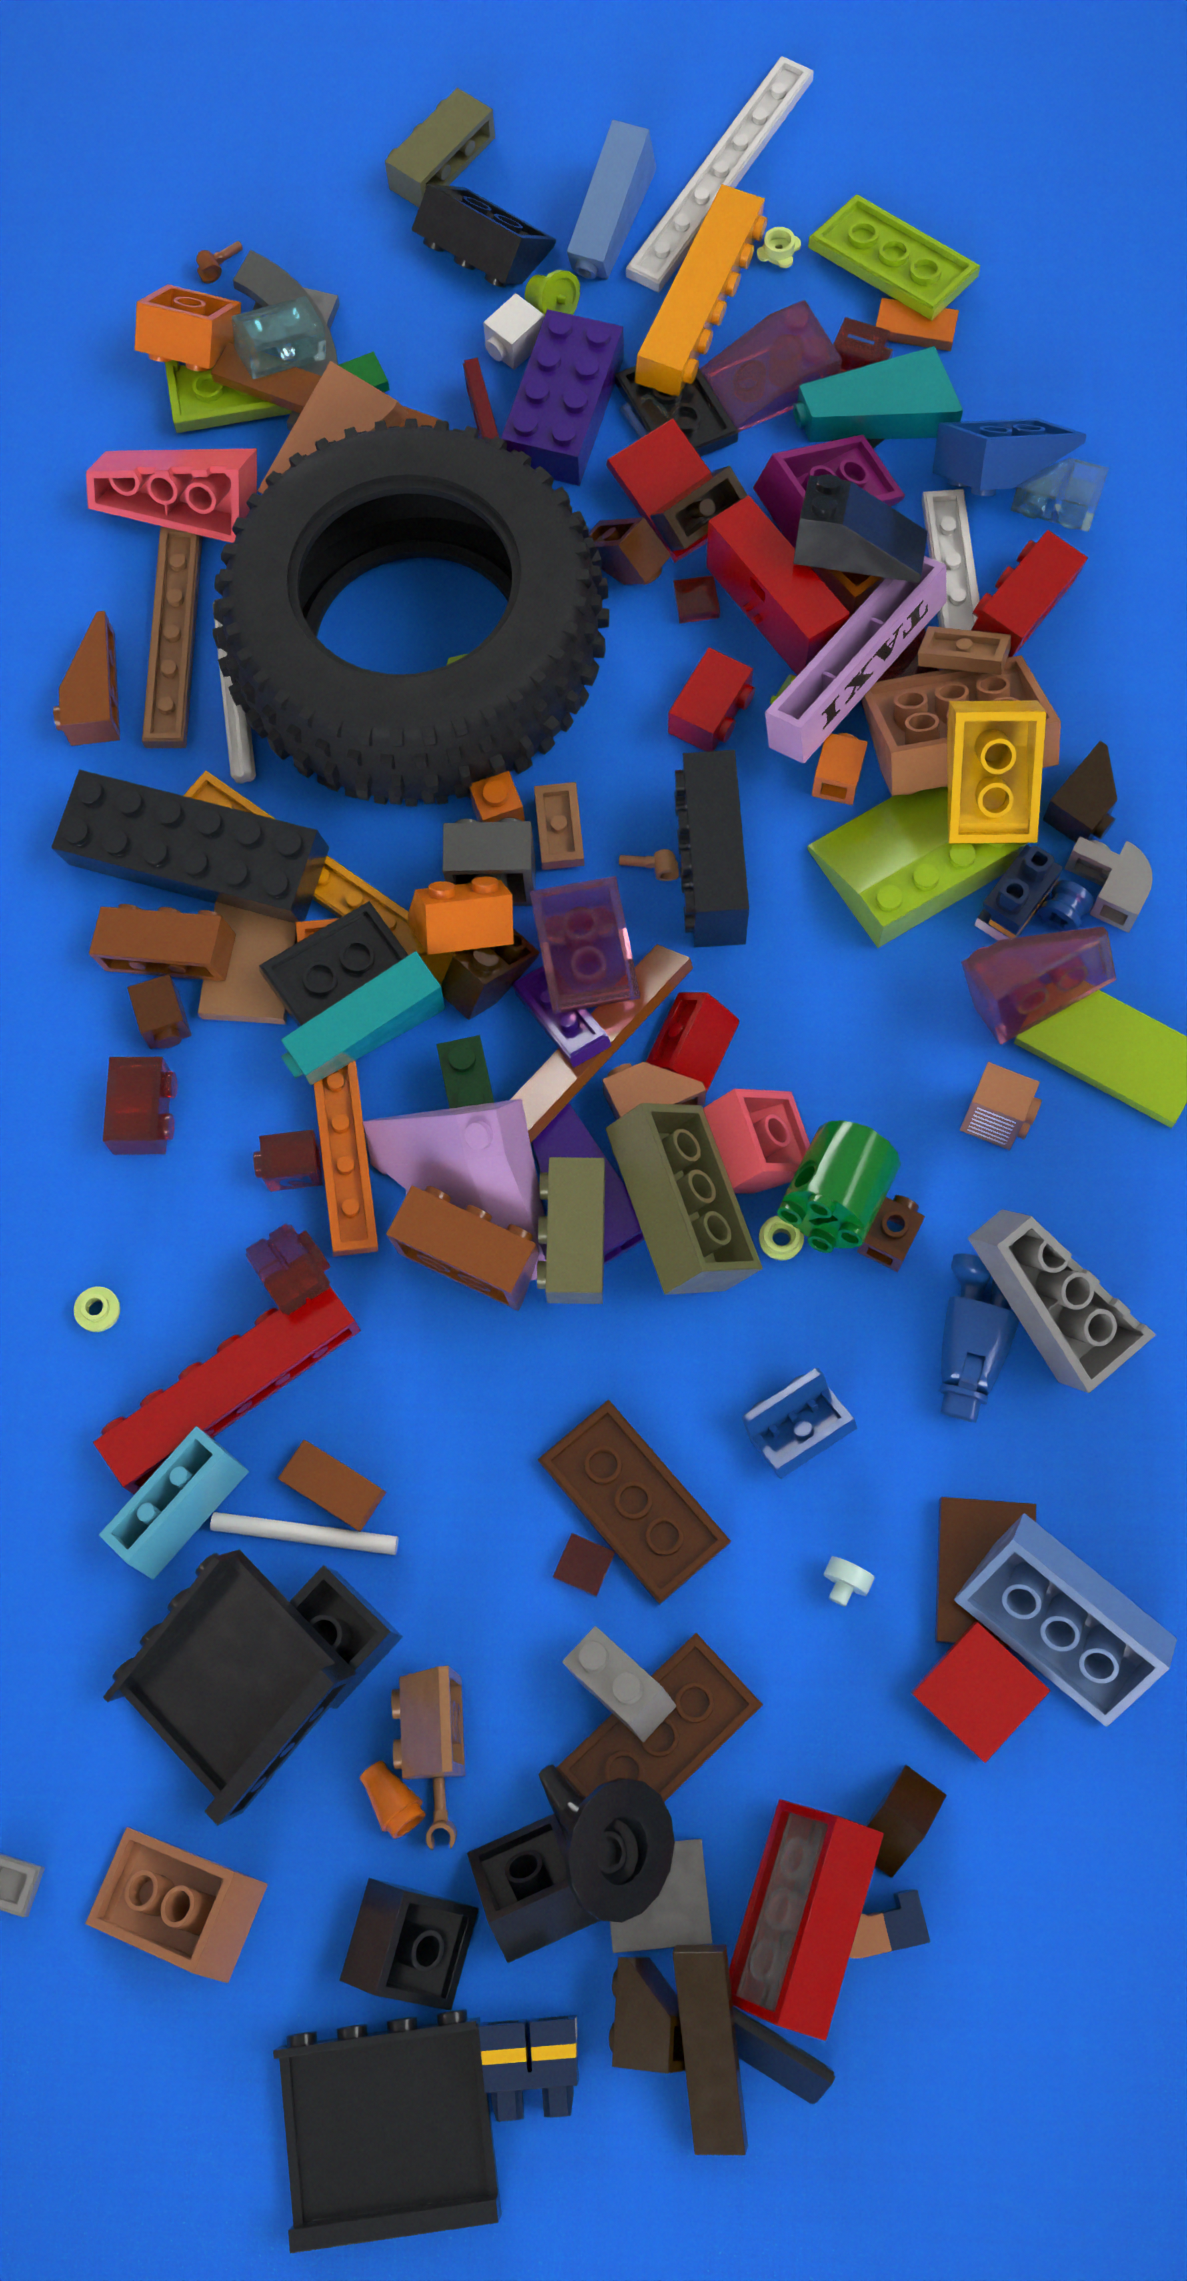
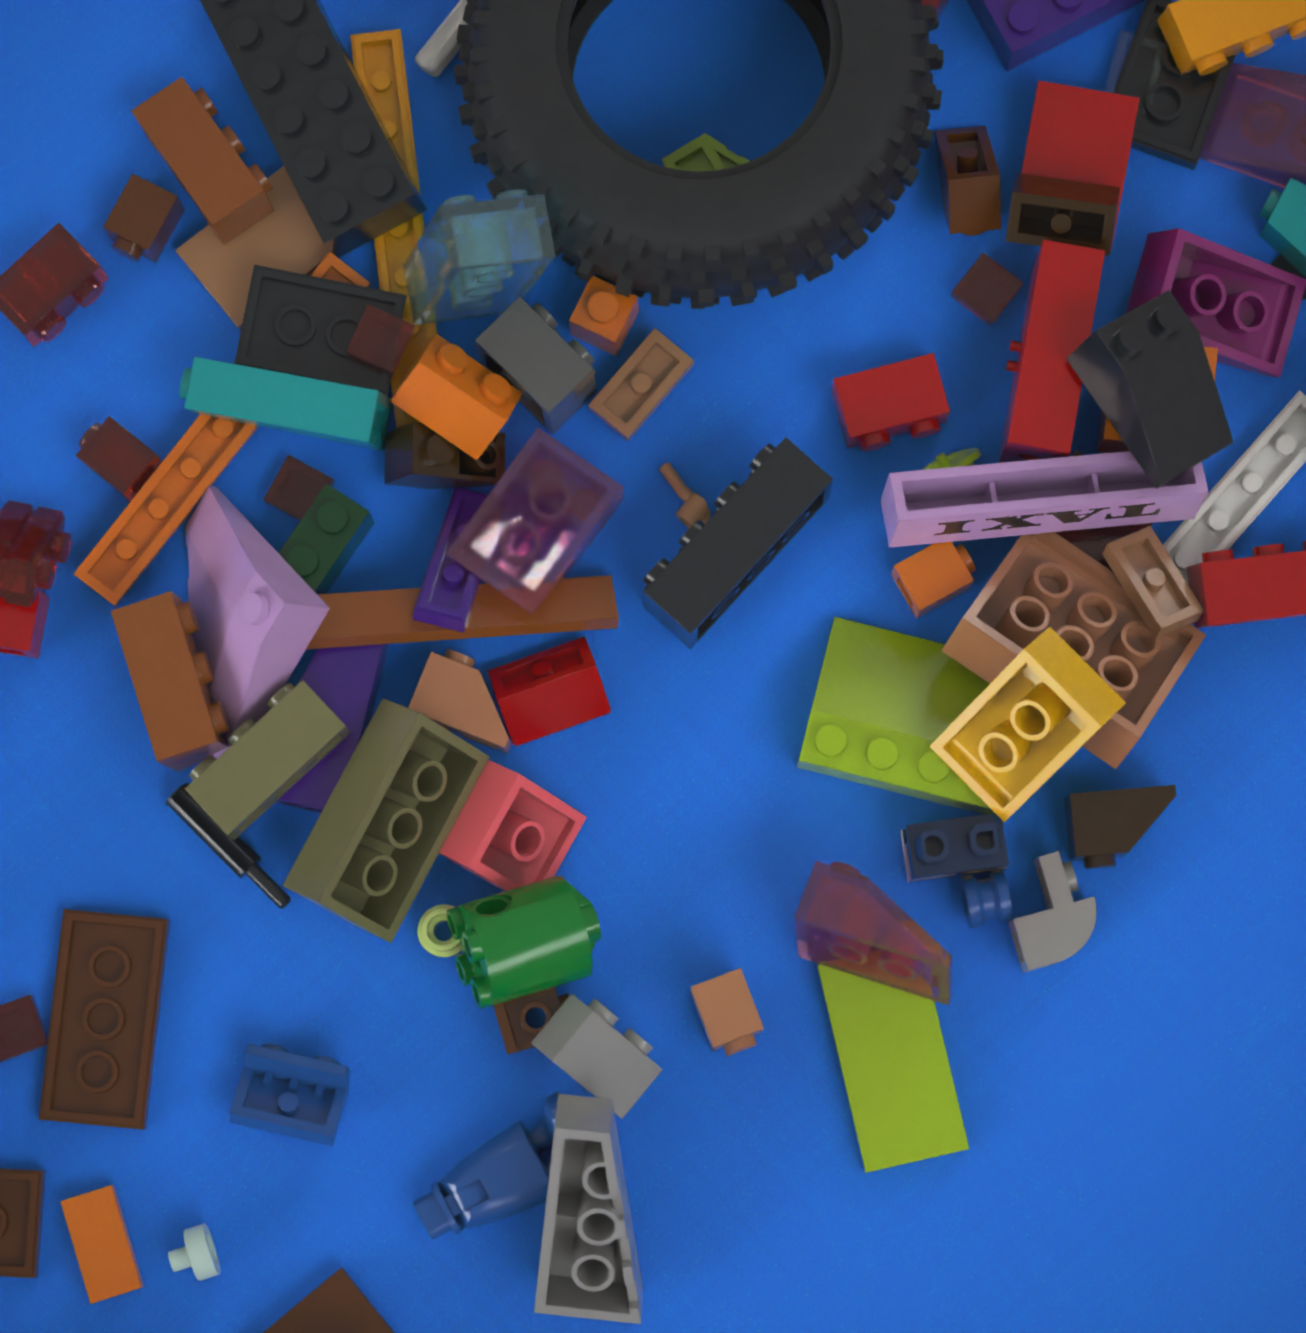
camera: 45 degrees right, 10 degrees up
(381, 936) = (380, 339): none -> clear red tile
(396, 820) = (478, 256): none -> clear light blue brick
(419, 1077) = (296, 488): none -> clear red tile
(592, 1319) = (232, 852): none -> black axle
(781, 1639) = (102, 1244): none -> orange tile
(950, 1205) = (596, 1054): none -> light grey brick

